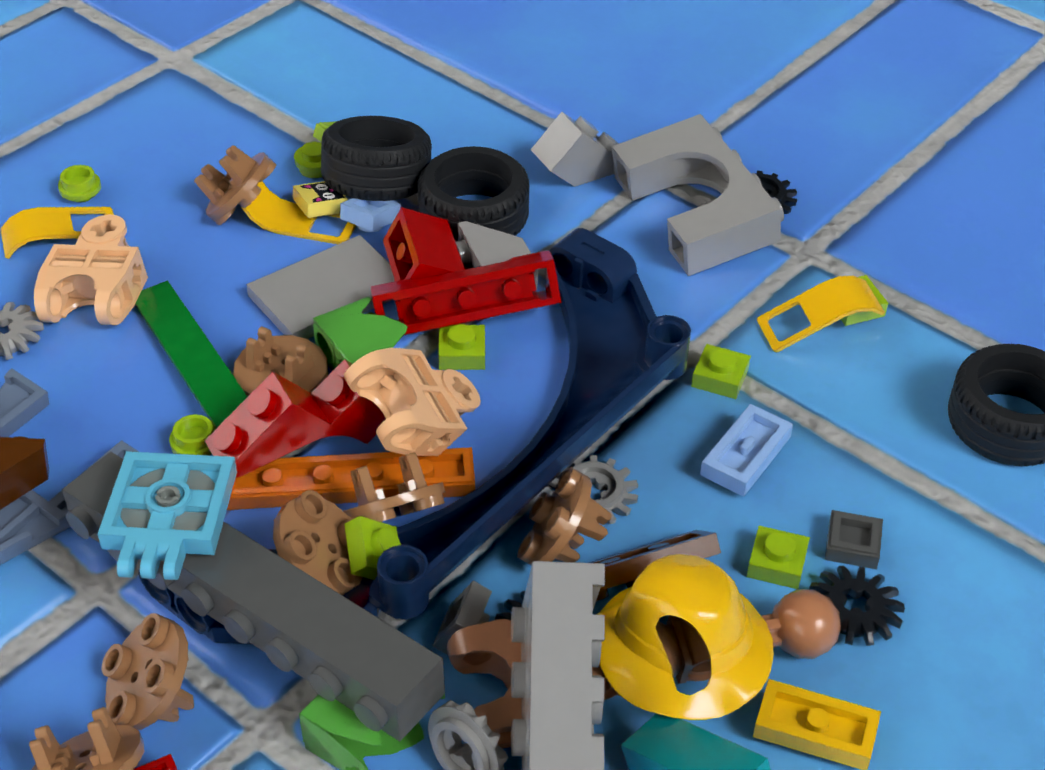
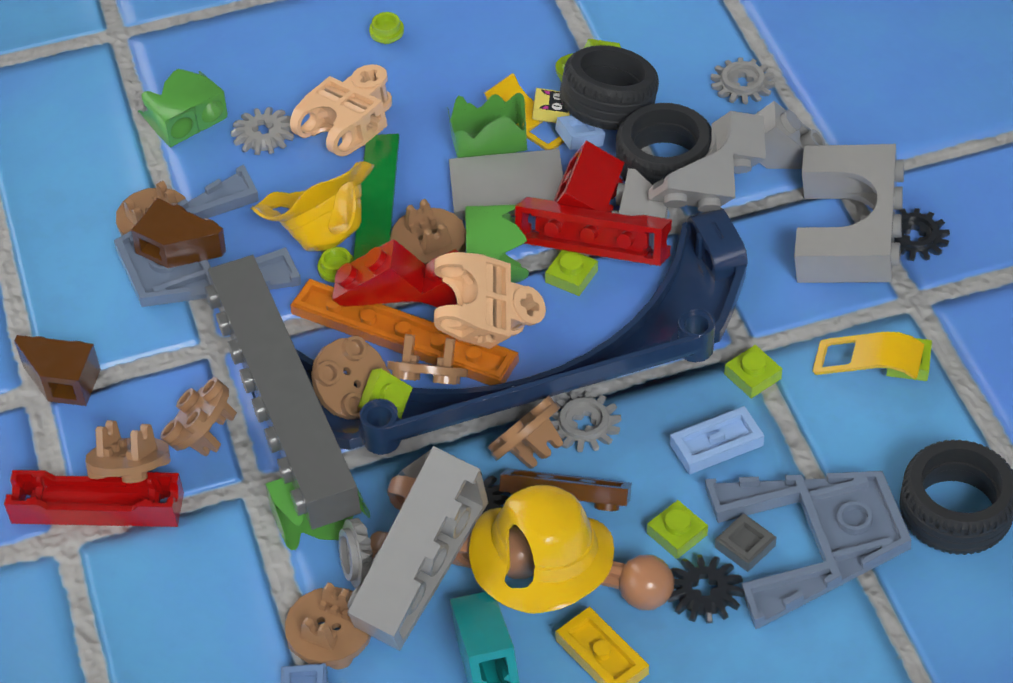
camera: 35 degrees right, 5 degrees up
(43, 224) = (346, 55): yellow piece -> none
(148, 384) = (322, 213): none -> yellow piece
(166, 510) = (253, 311): medium azure piece -> none
(237, 185) = (487, 69): medium nougat plate -> none
(288, 222) = (490, 127): none -> bright green piece
(473, 116) = (728, 78): none -> light grey gear
(553, 200) = (710, 181): none -> light grey arch
(934, 469) = (849, 519): none -> sand blue wing

